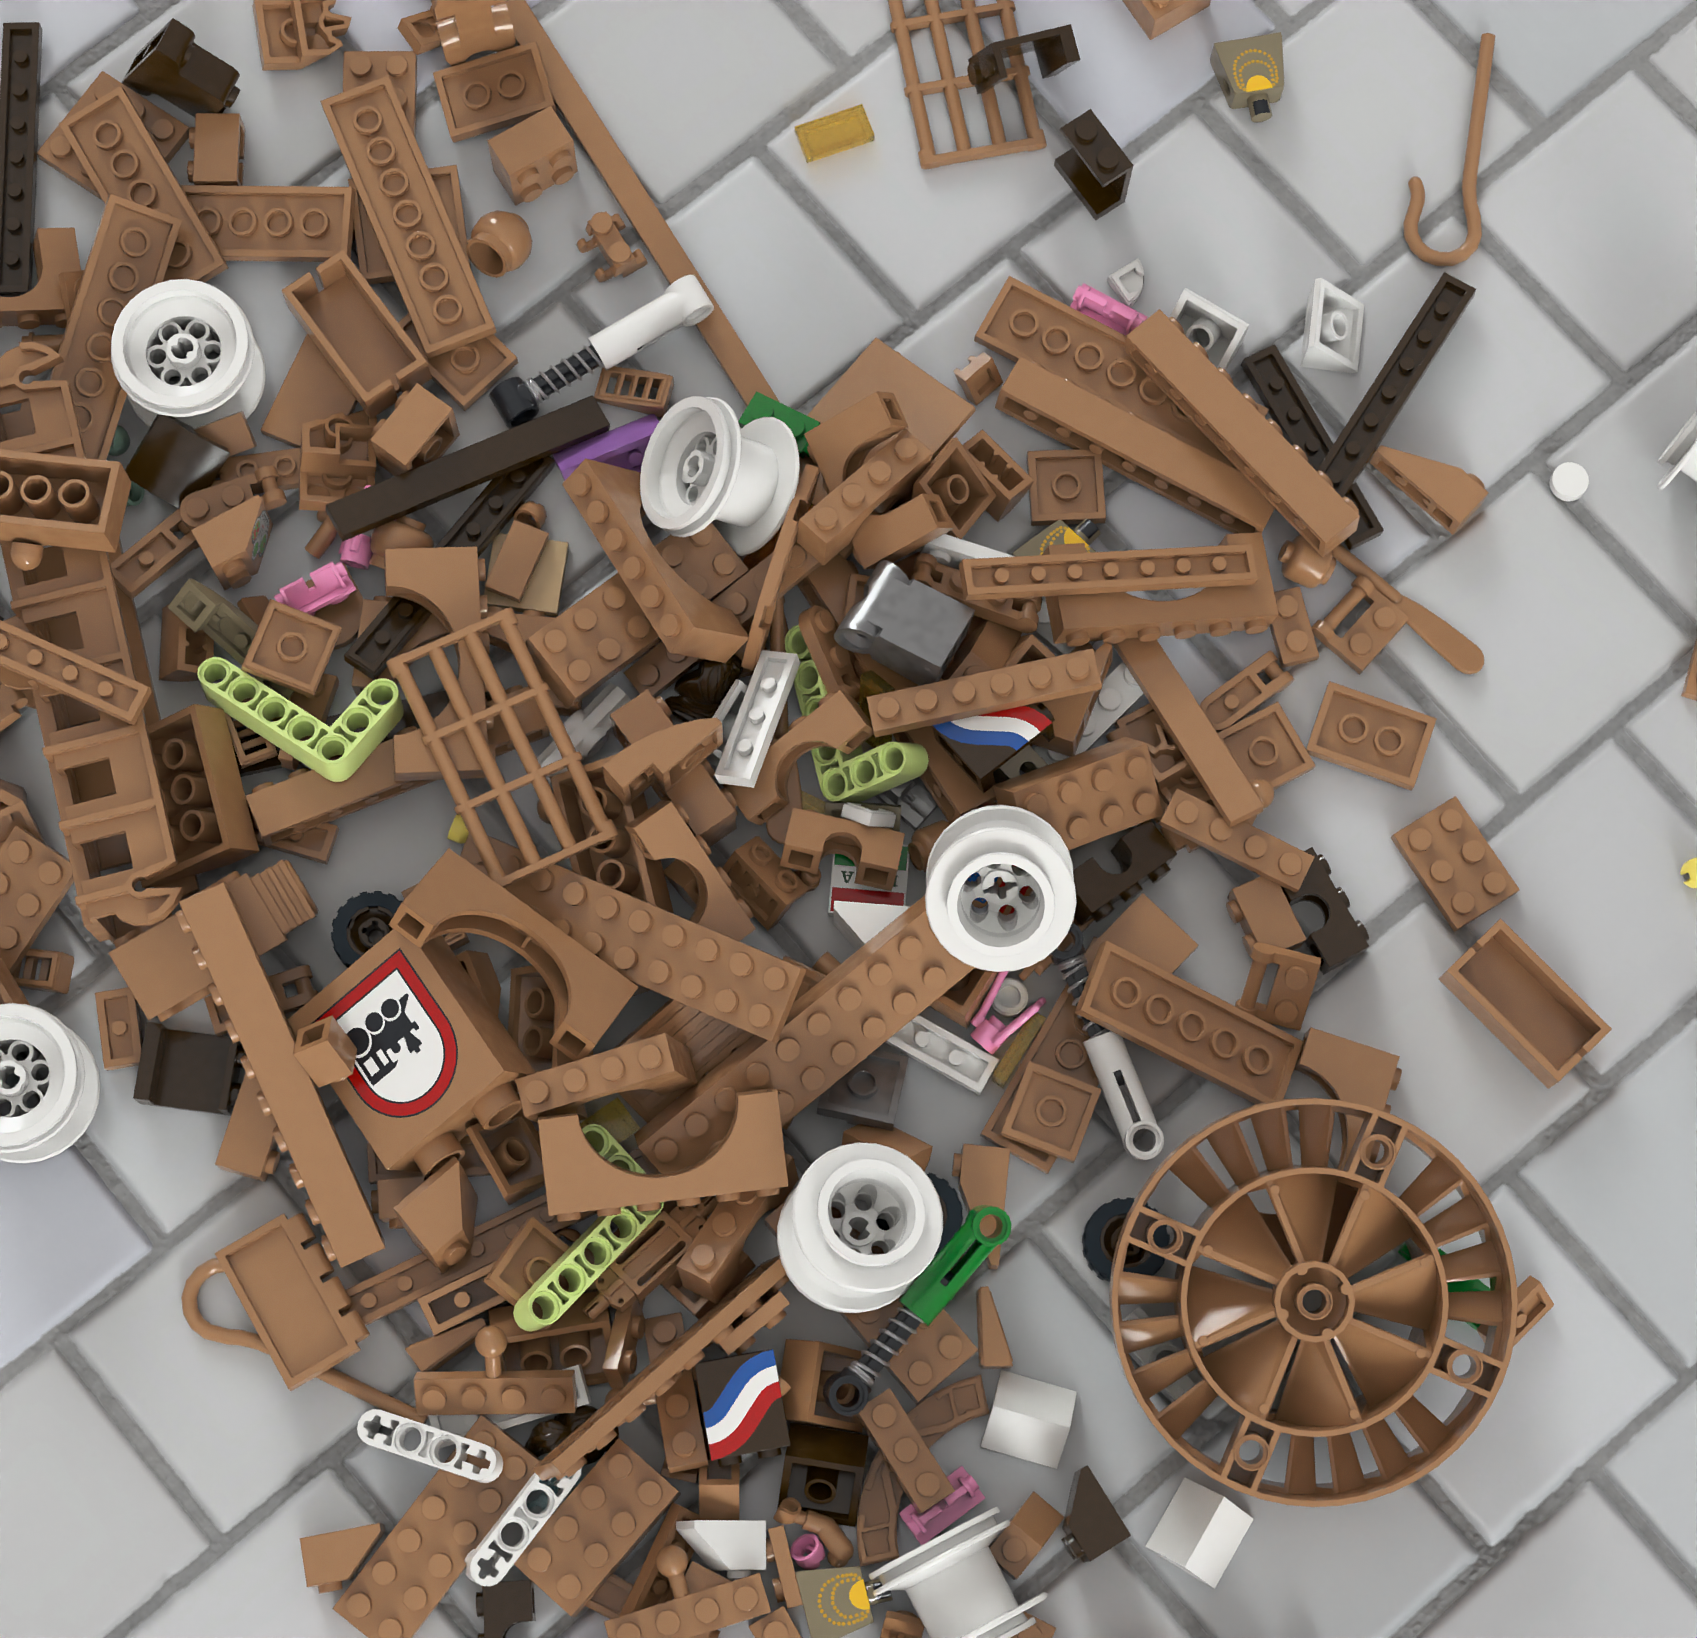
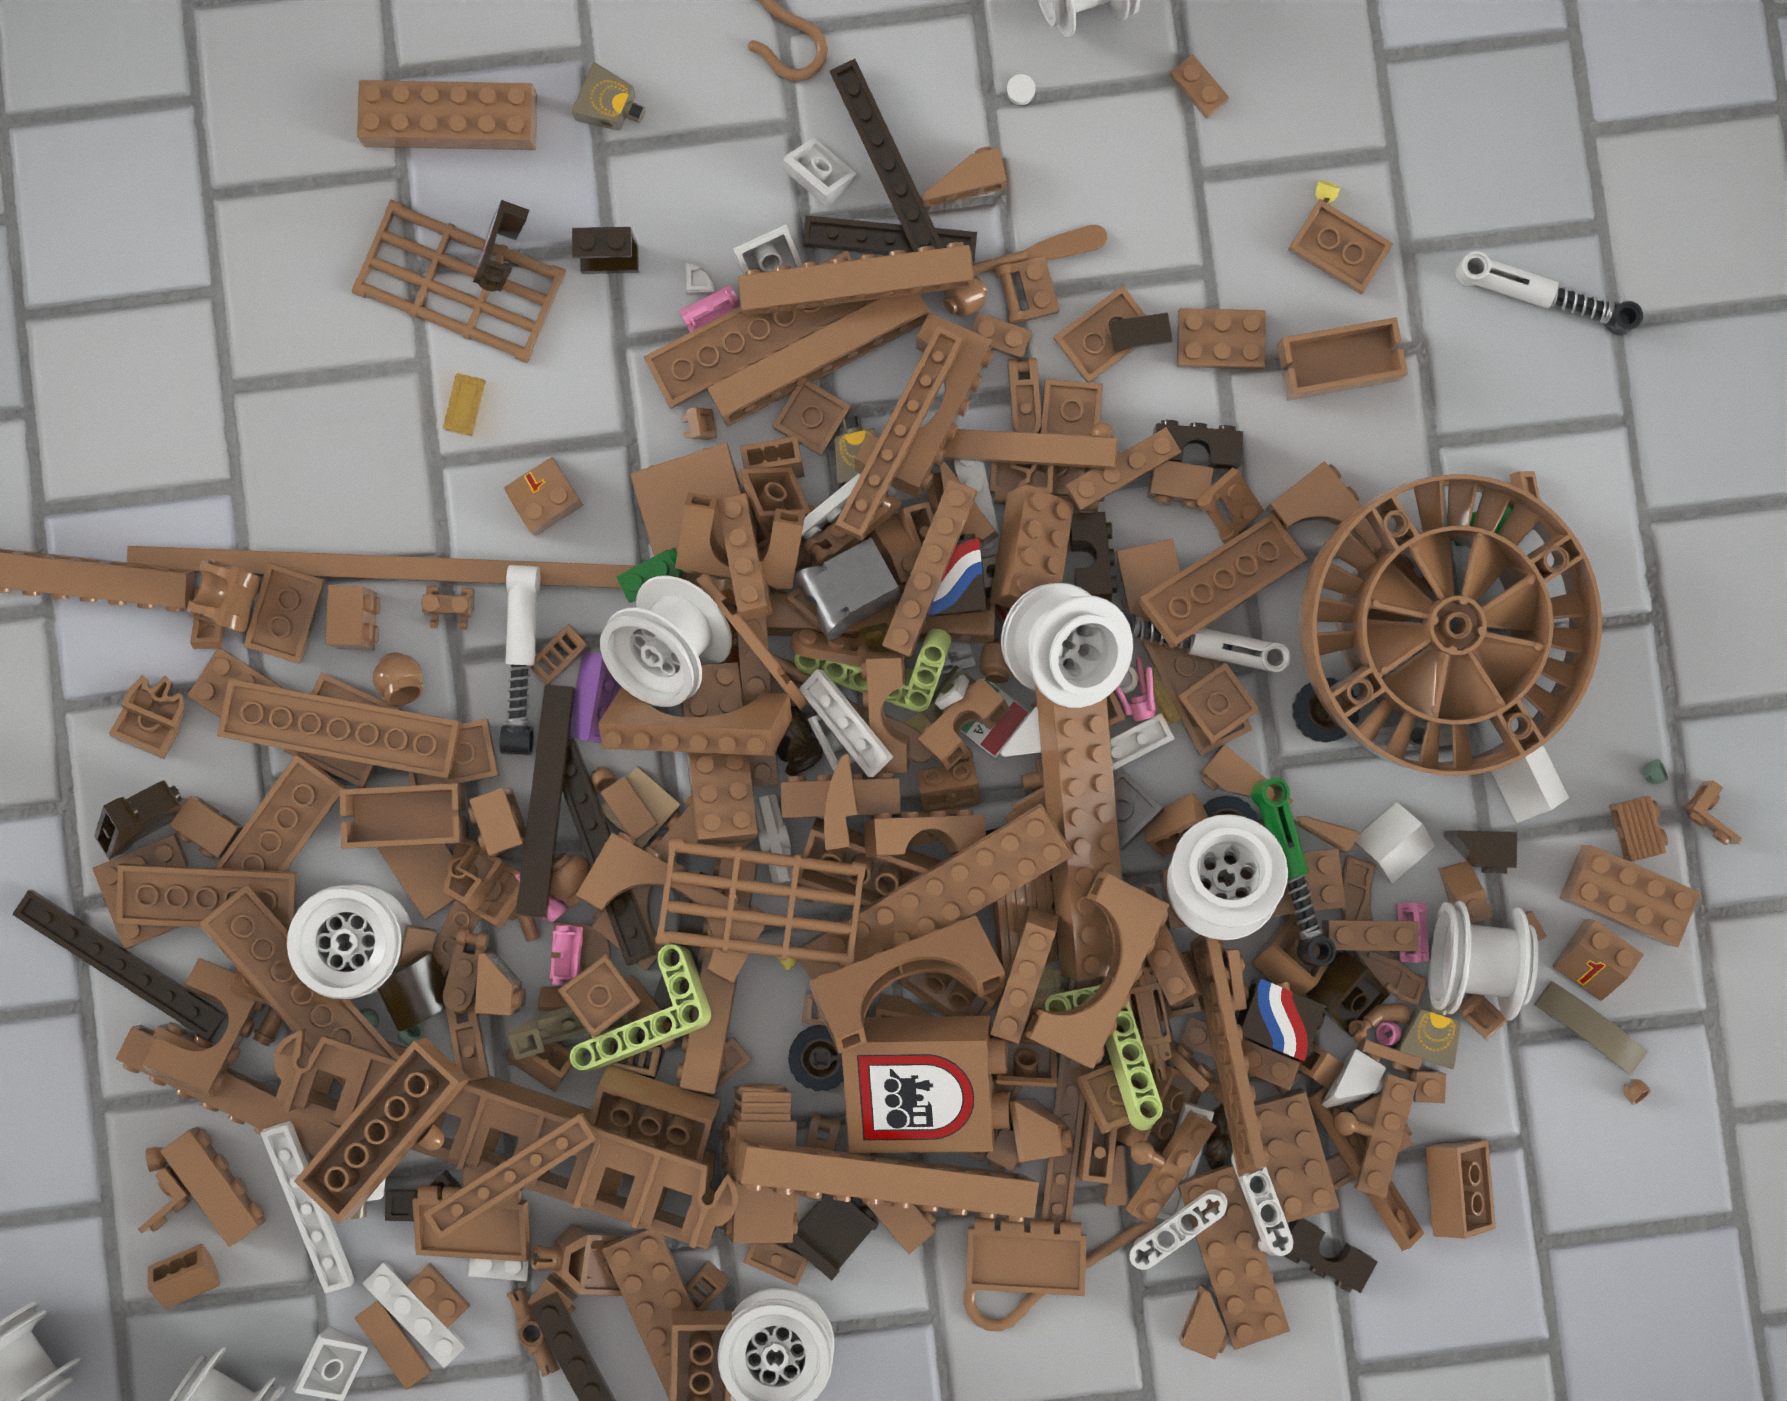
camera: 50 degrees left, 10 degrees up
(325, 1051) = (893, 1145): medium nougat brick -> none
(790, 271) = (543, 496): none -> medium nougat slope
(1399, 768) = (1141, 332): none -> dark brown tile
(1647, 926) = (1340, 246): none -> medium nougat plate

